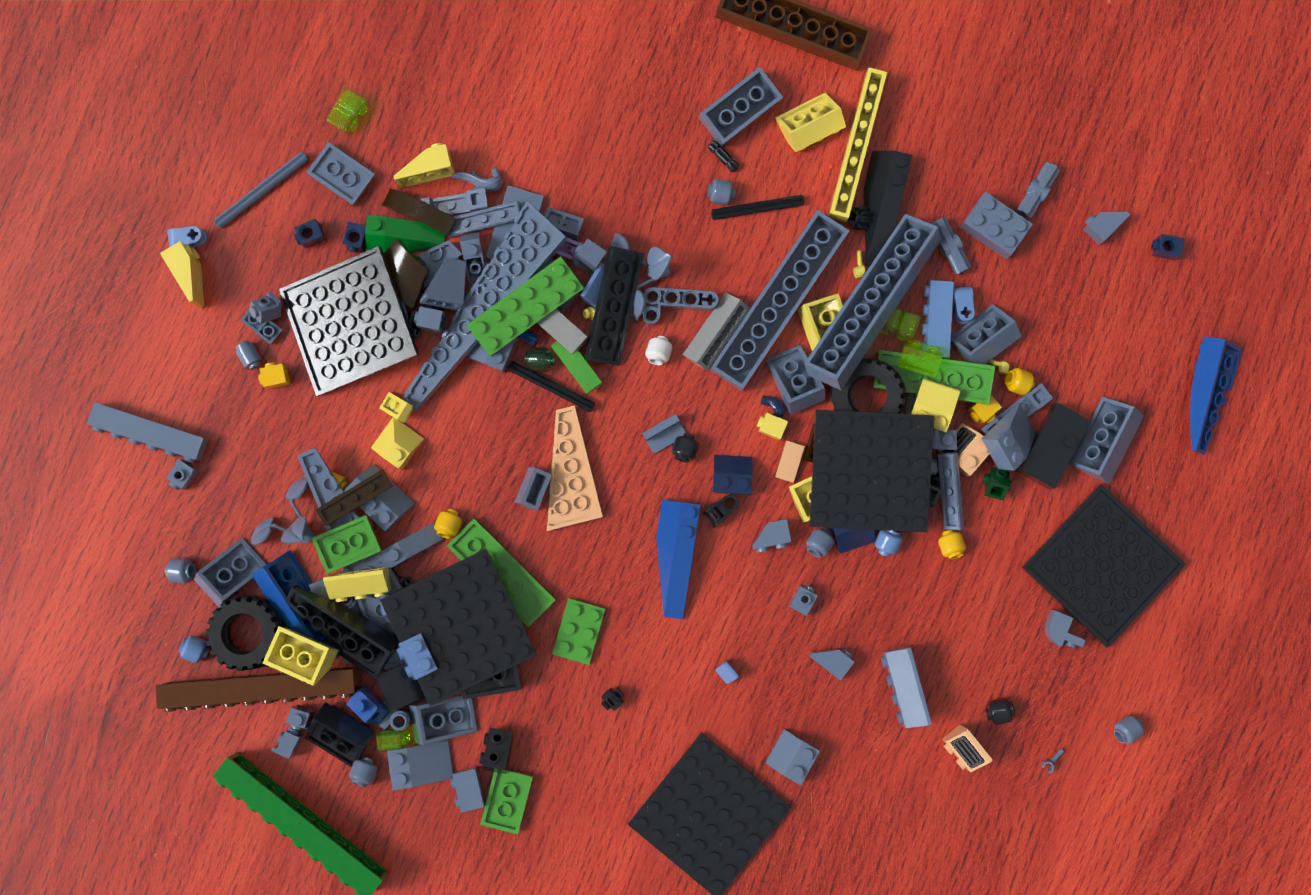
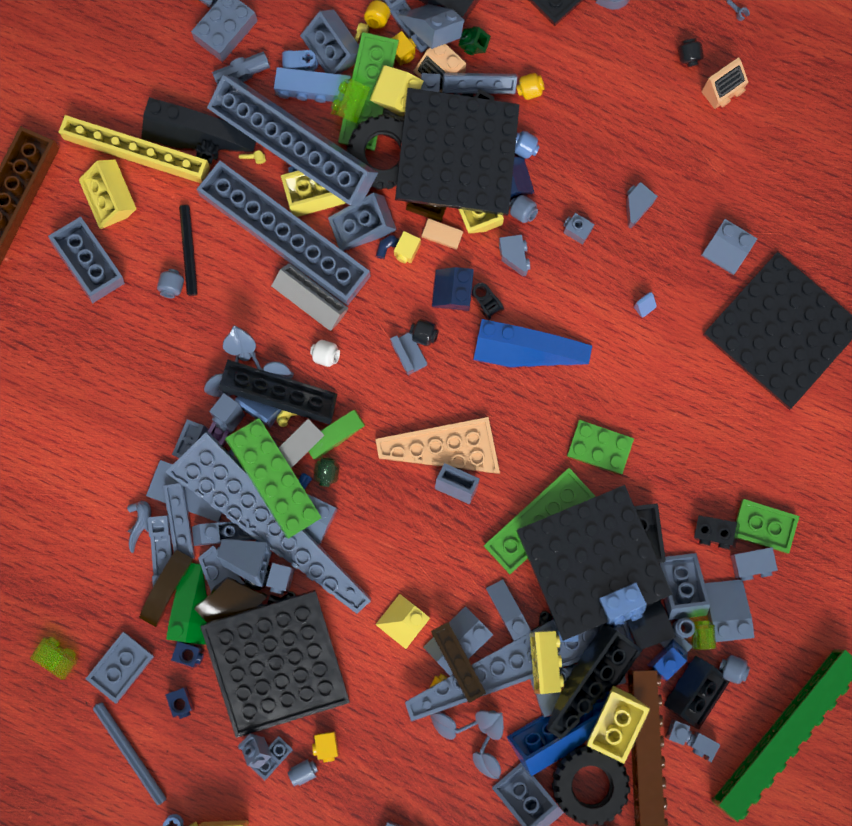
camera: 85 degrees left, 5 degrees down
(346, 544) = (505, 673): bright green plate -> none
(396, 407) = (366, 619): light yellow slope -> none
(428, 166) = (119, 570): light yellow slope -> none
(448, 524) = (488, 572): yellow head -> none
(551, 386) = (354, 462): black axle -> none
(612, 699) = (668, 416): black gear -> none
(681, 303) = (279, 329): sand blue beam -> none
(723, 156) = (134, 280): black axle -> none
(901, 324) = (316, 116): clear neon green brick -> none
(906, 687) = (665, 135): slope -> none

